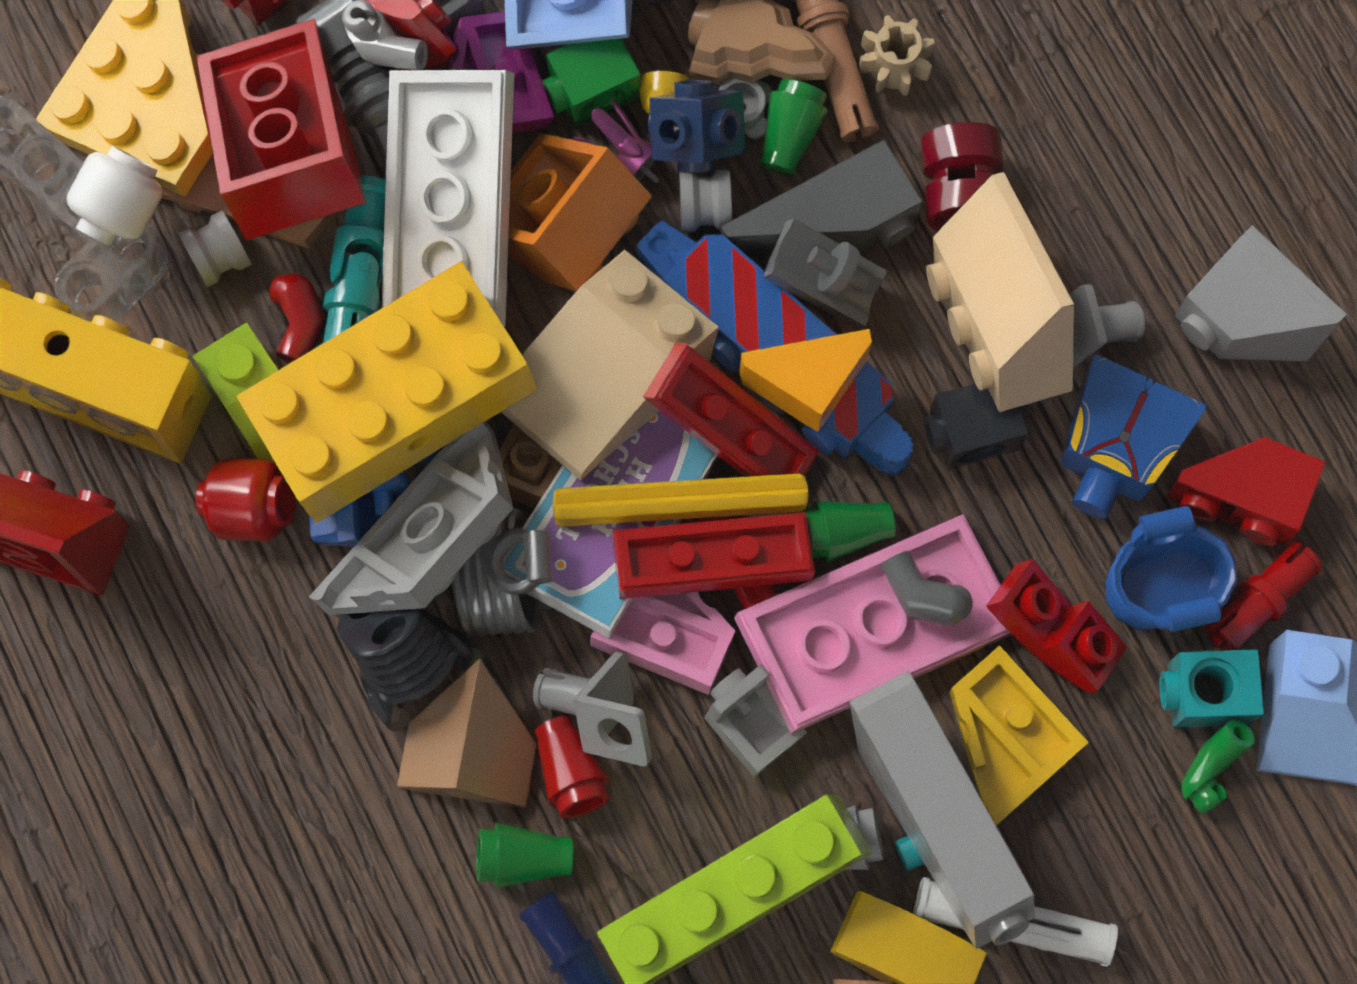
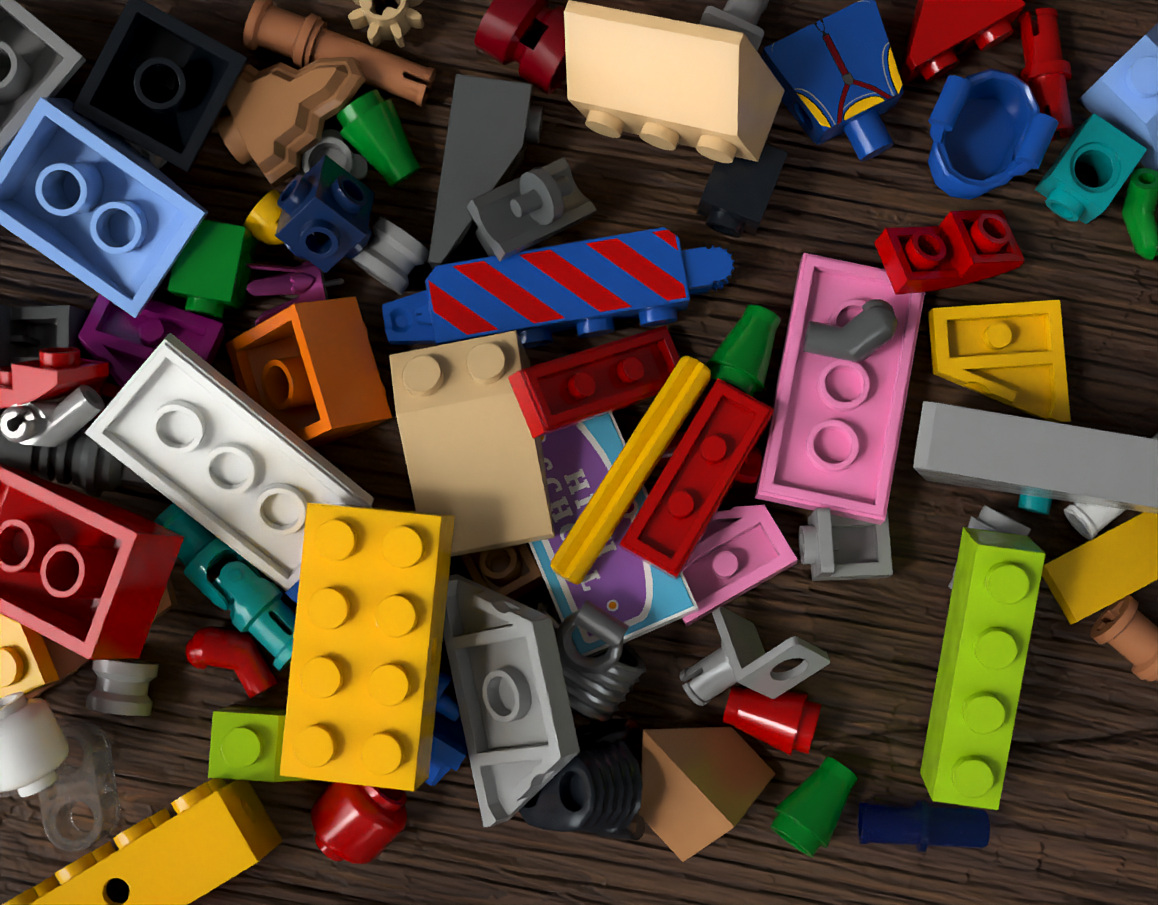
camera: 45 degrees left, 10 degrees up
(807, 375) = (616, 291): light orange slope -> none

